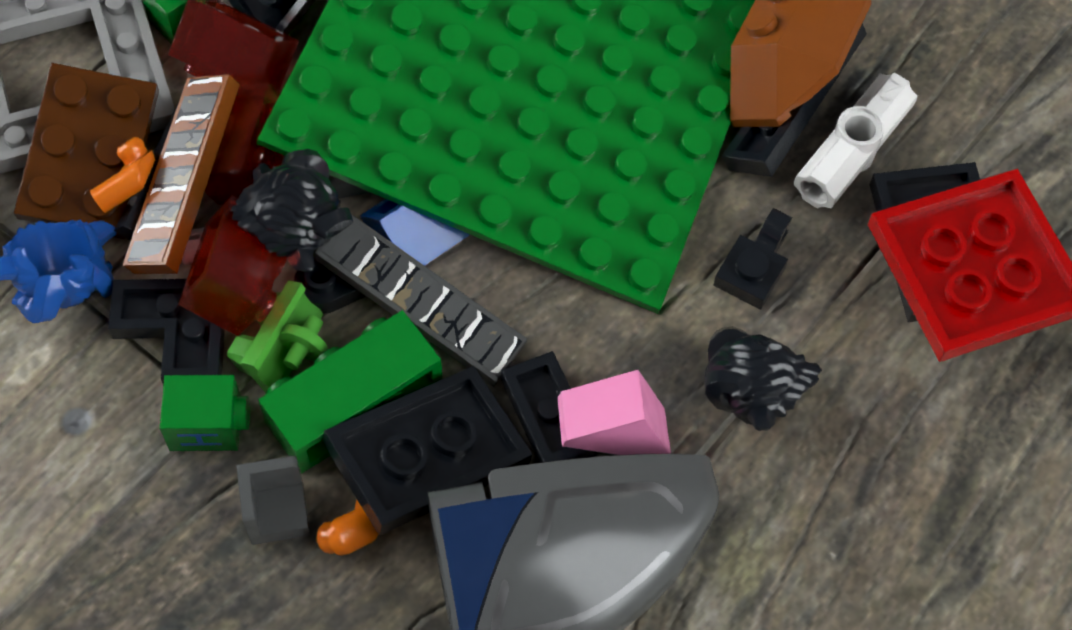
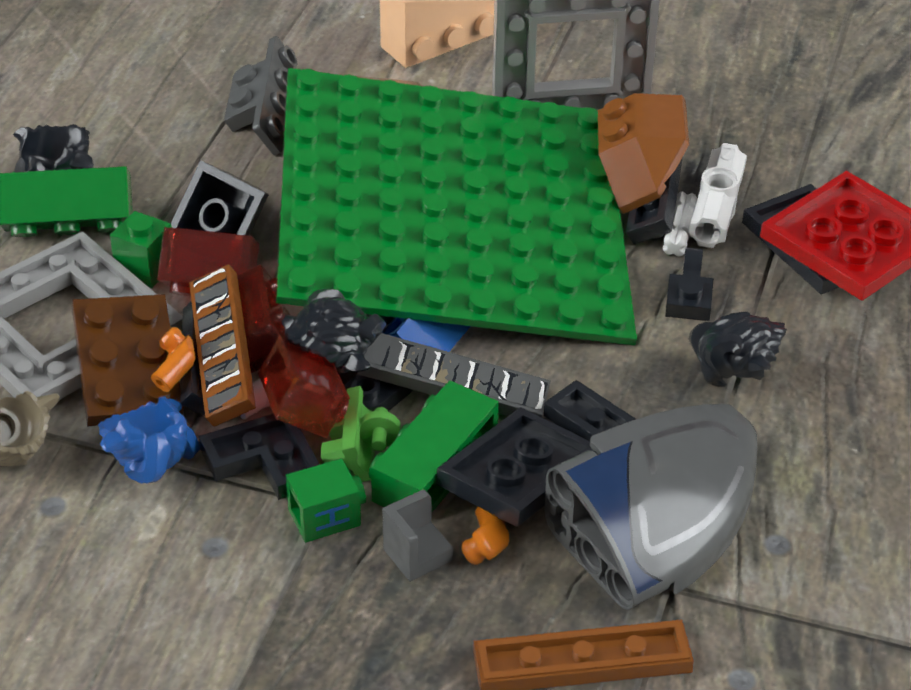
camera: 20 degrees left, 20 degrees down
(614, 417) = (645, 392): bright pink slope -> none
(776, 188) = (676, 241): none -> white axle

